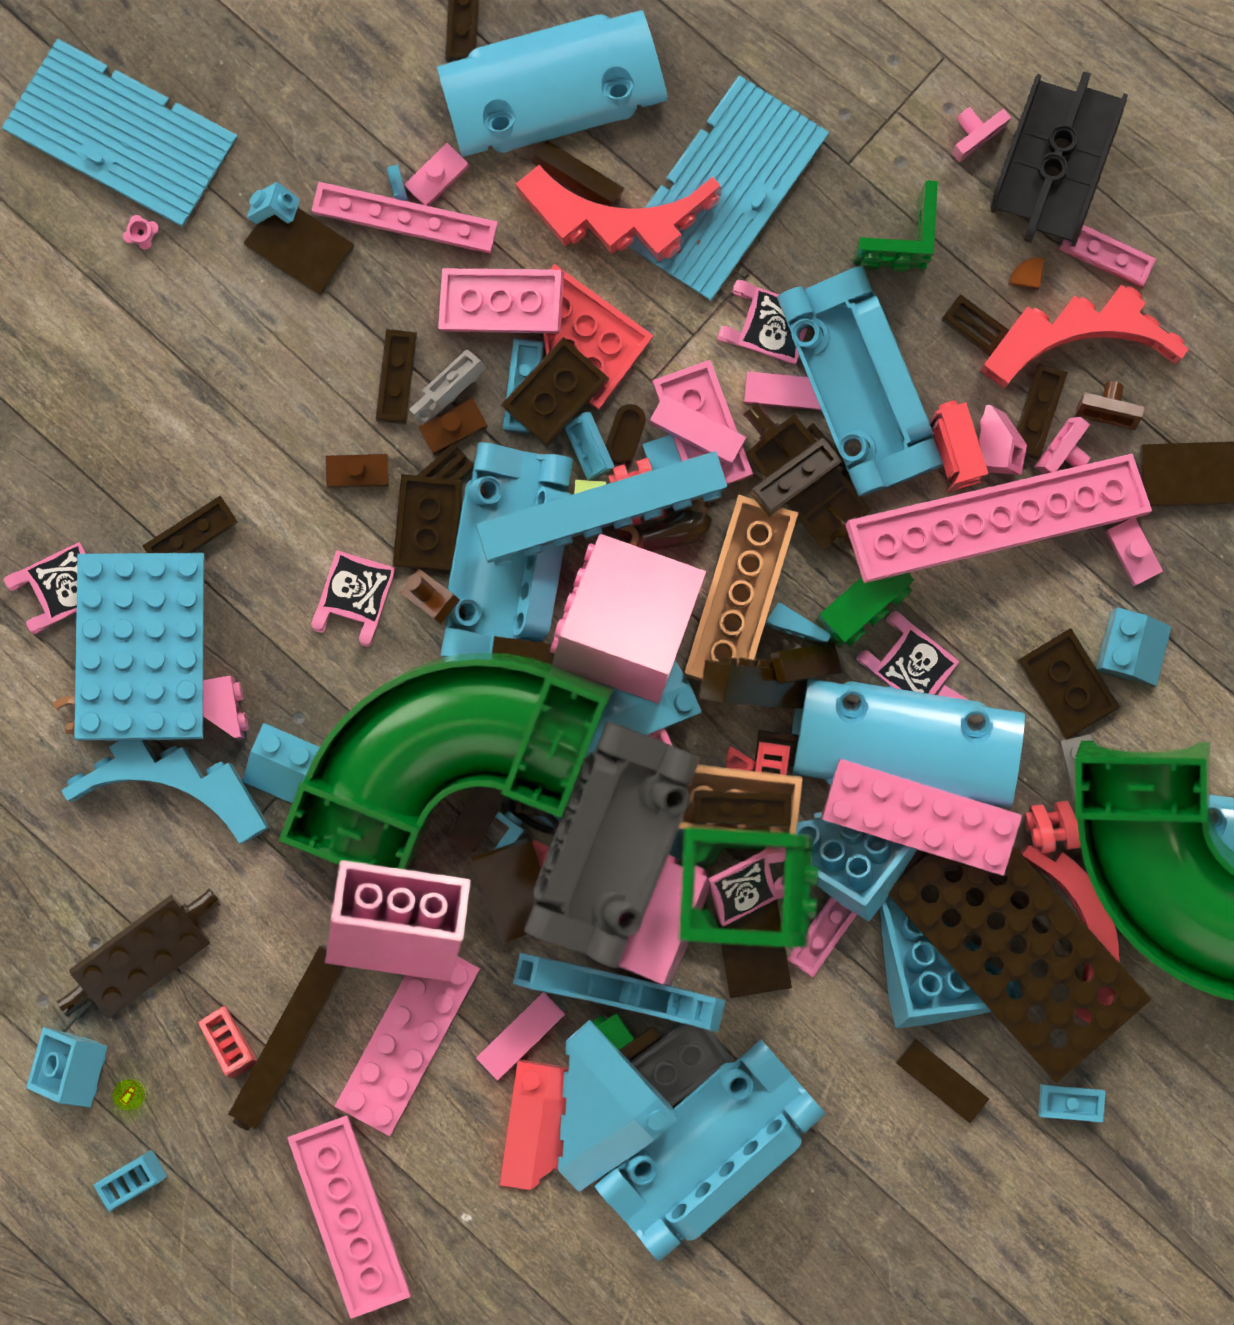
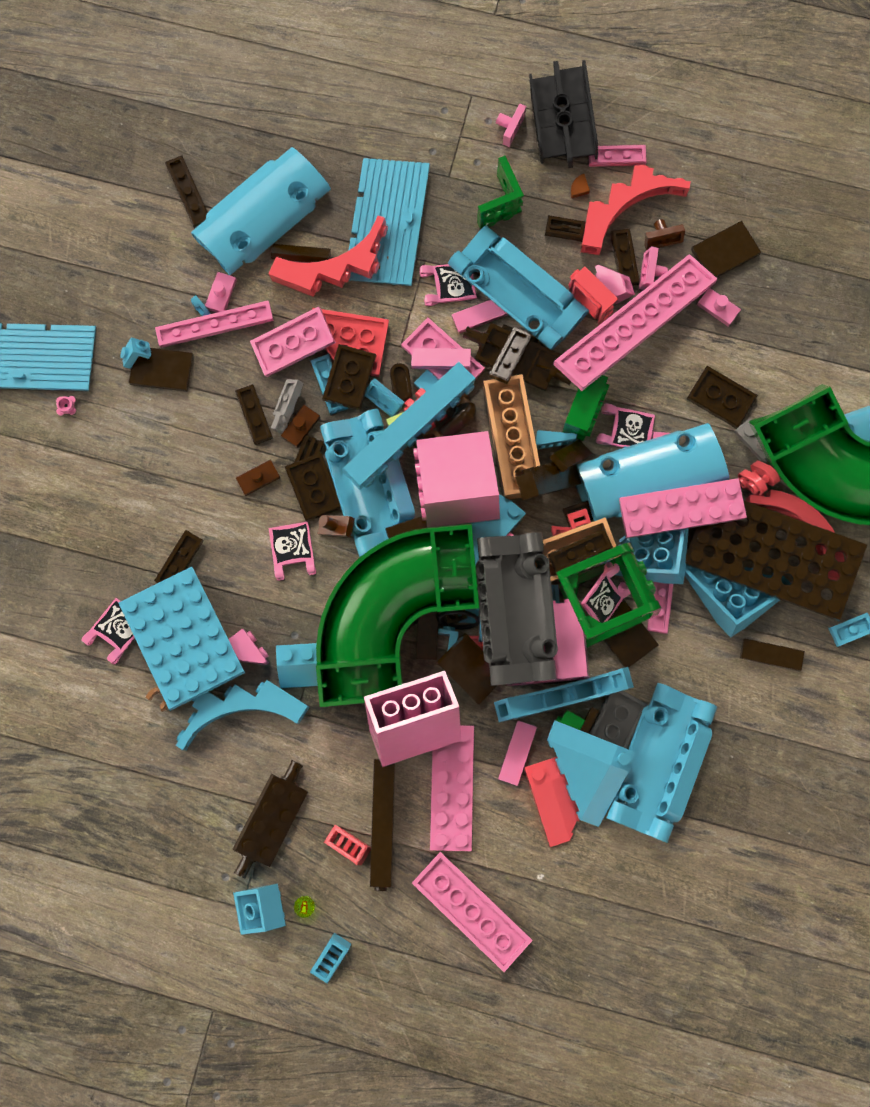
camera: 25 degrees left, 5 degrees down
(1133, 646) = (746, 358): medium azure slope -> none

